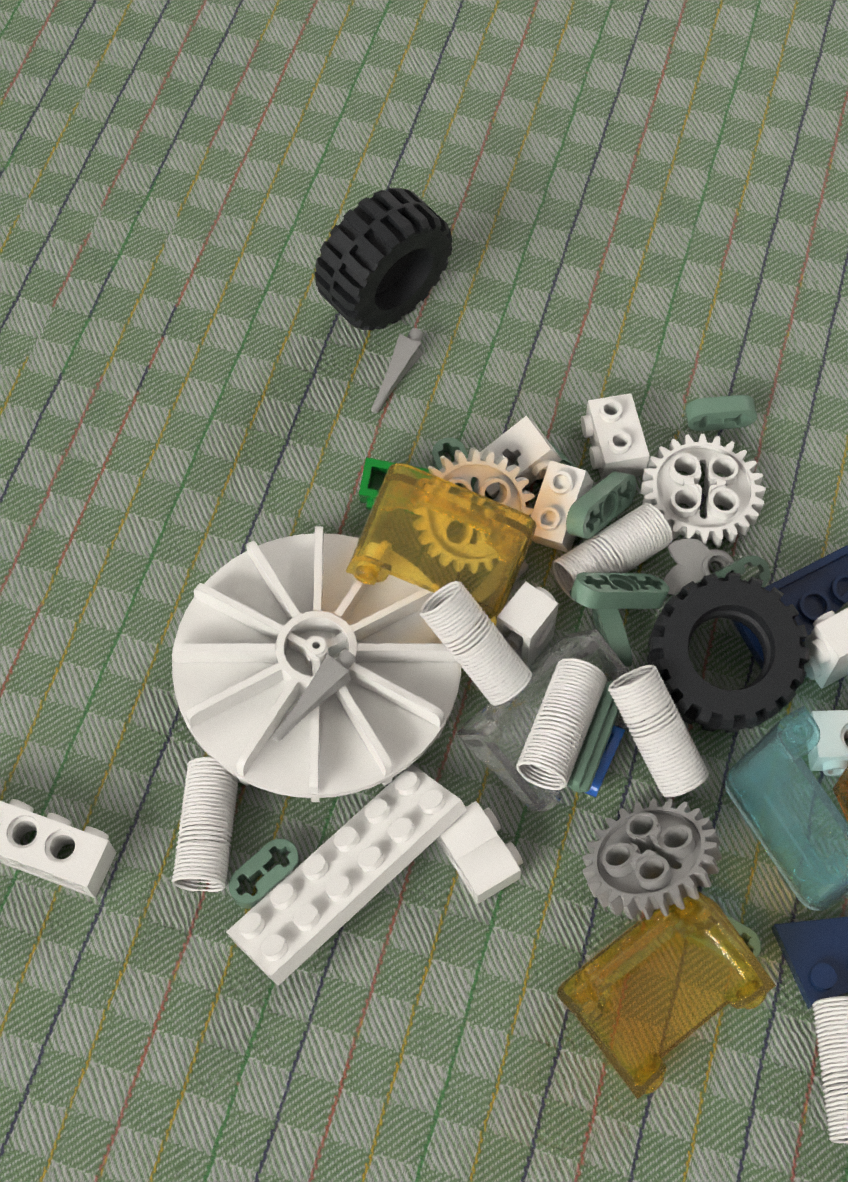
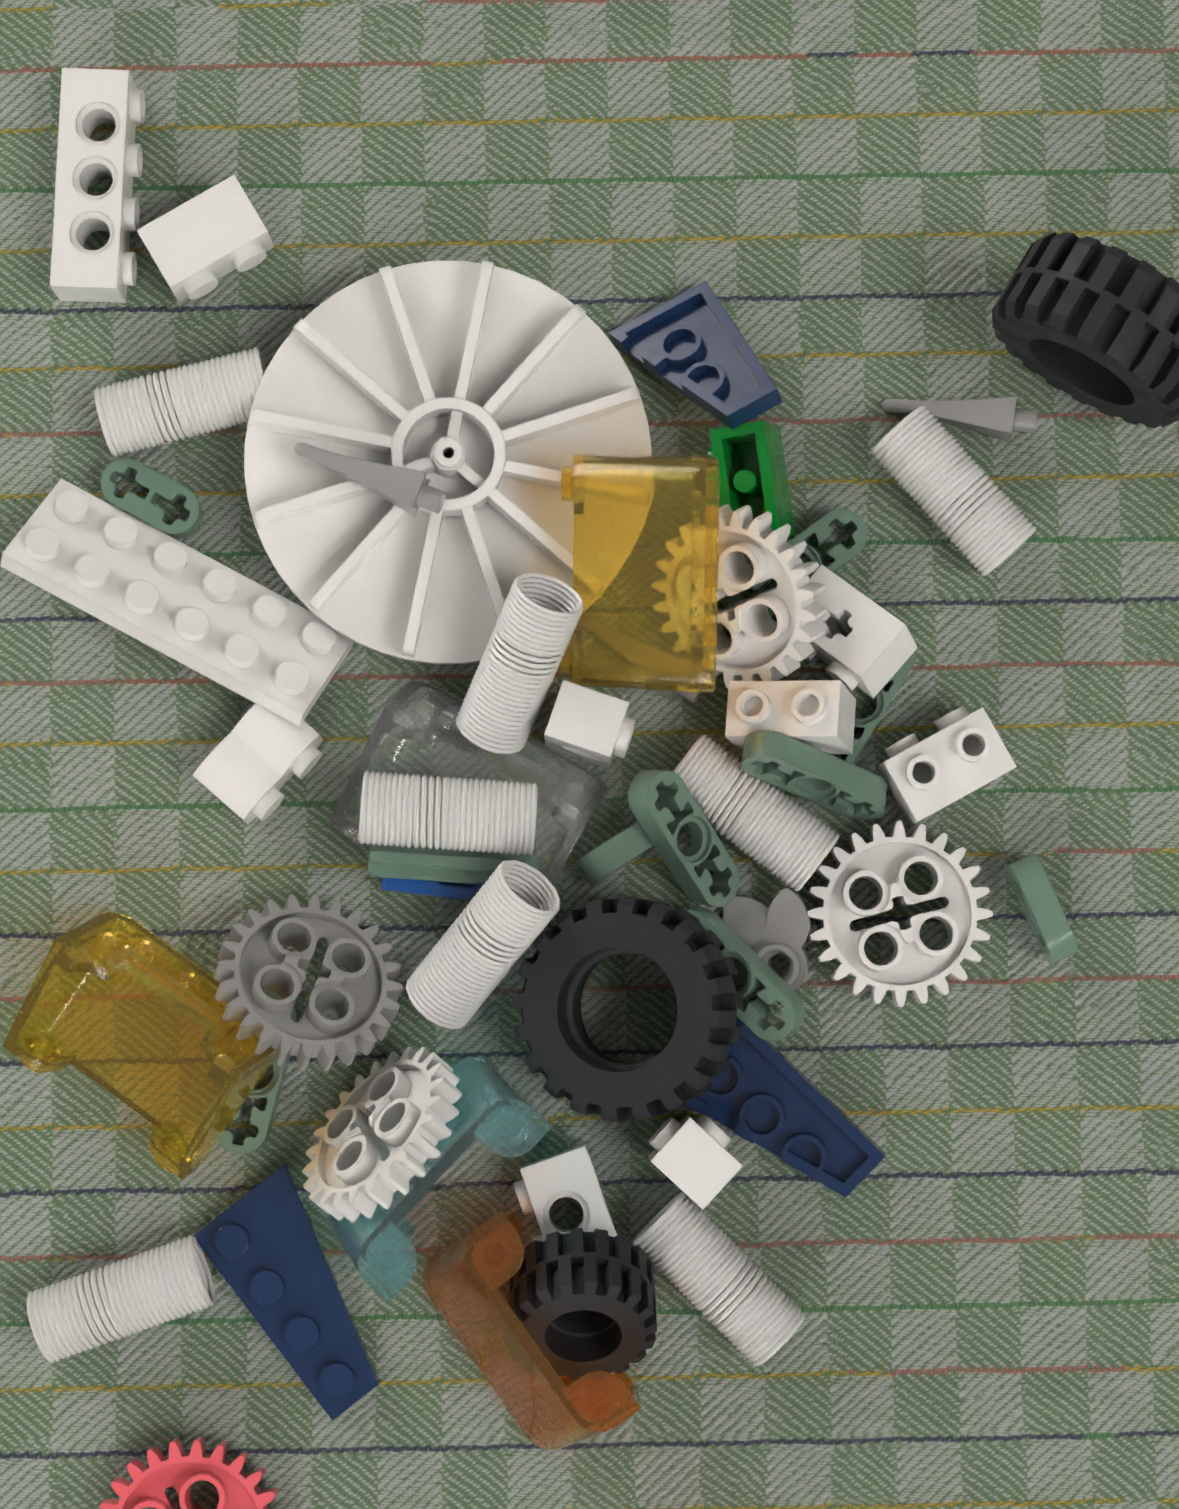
camera: 70 degrees right, 20 degrees up
(99, 773) = (207, 239): none -> white brick
(307, 489) = (700, 355): none -> dark blue wing
(437, 385) = (937, 474): none -> white piece
(791, 864) = (382, 1134): none -> white gear

